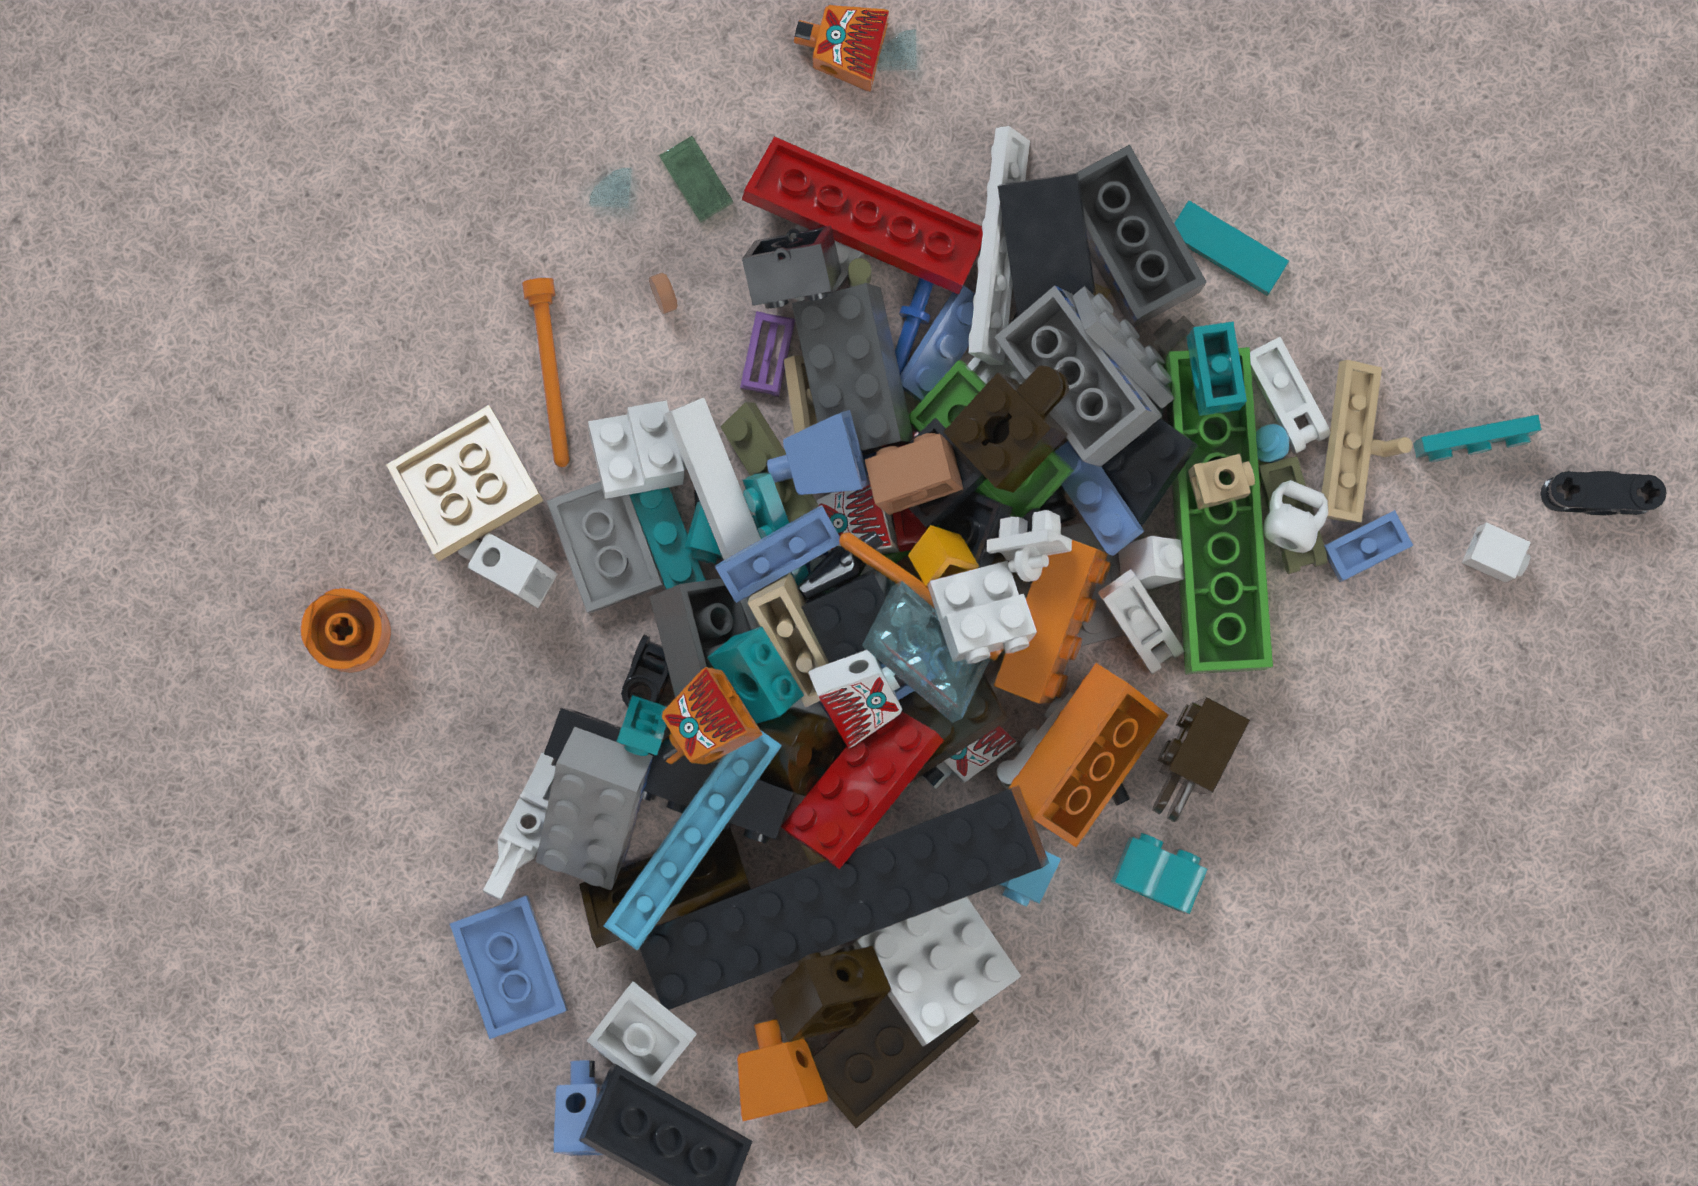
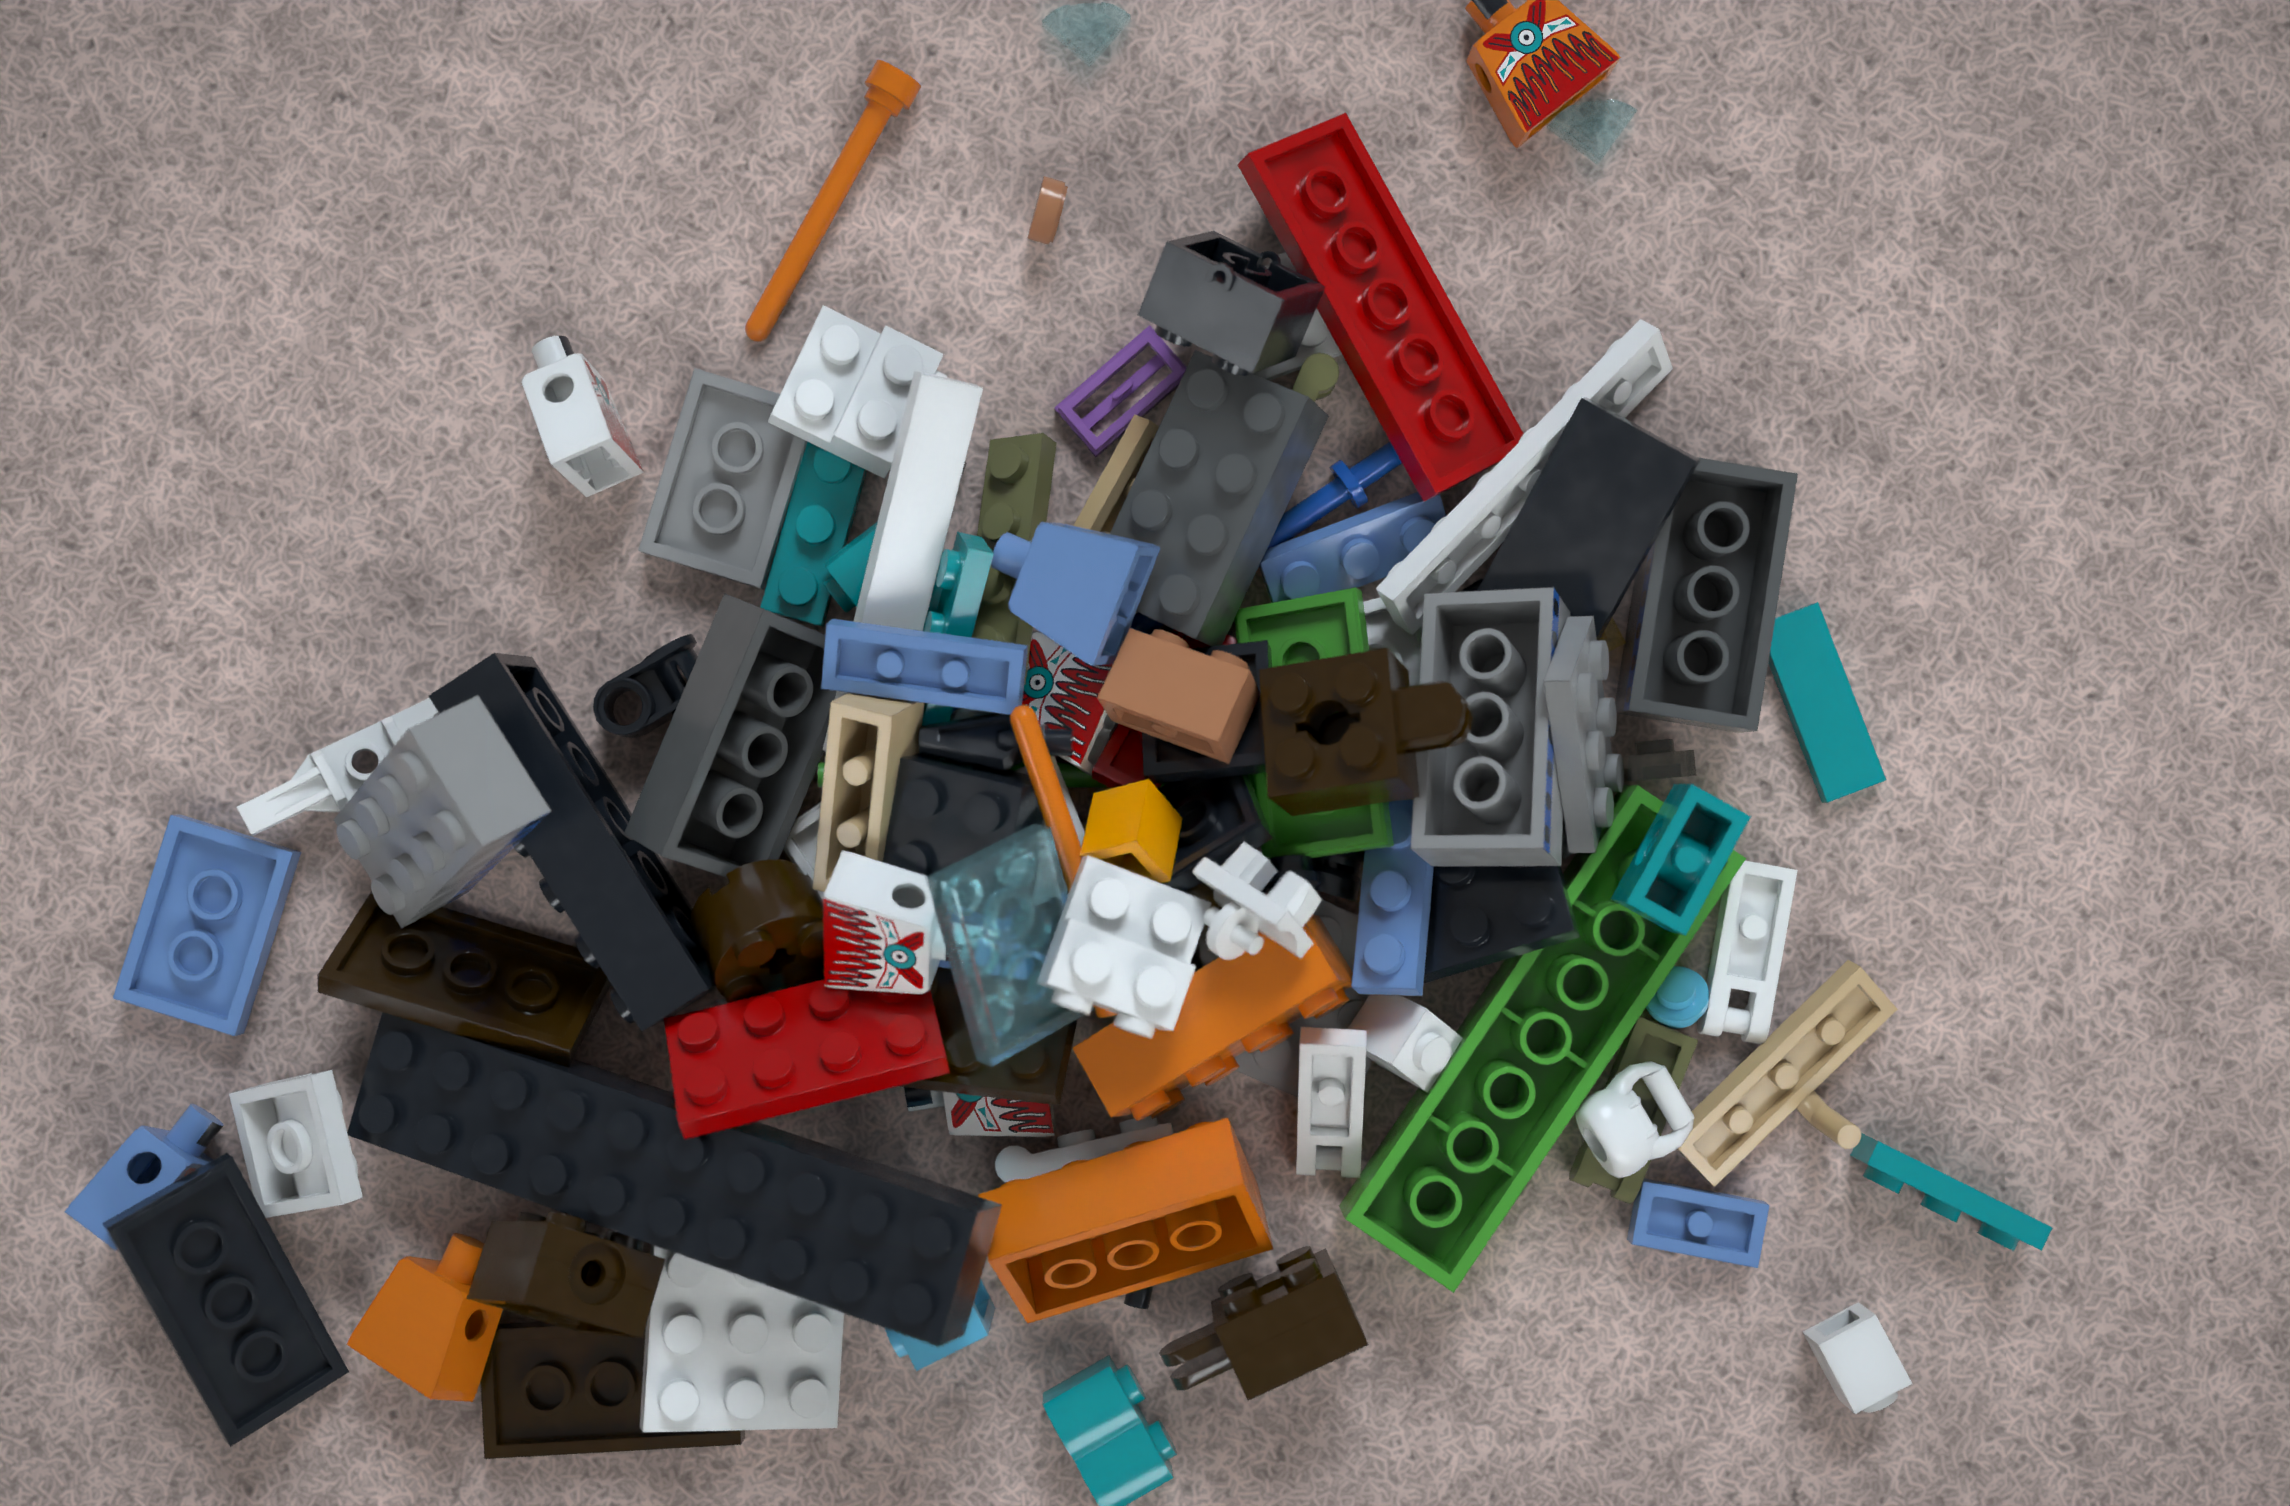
camera: 40 degrees right, 5 degrees up
(335, 611) = (277, 348): orange brick -> none
(464, 483) = (604, 265): plate -> none
(642, 727) = (575, 760): teal plate -> none
(690, 840) = (538, 947): medium azure tile -> none
(696, 179) = (1203, 93): clear green tile -> none
(706, 720) = (659, 816): torso -> none
(757, 674) = (776, 802): teal brick -> none
(1211, 491) = (1549, 1002): tan brick -> none
(1603, 493) = (2056, 1387): black piece -> none

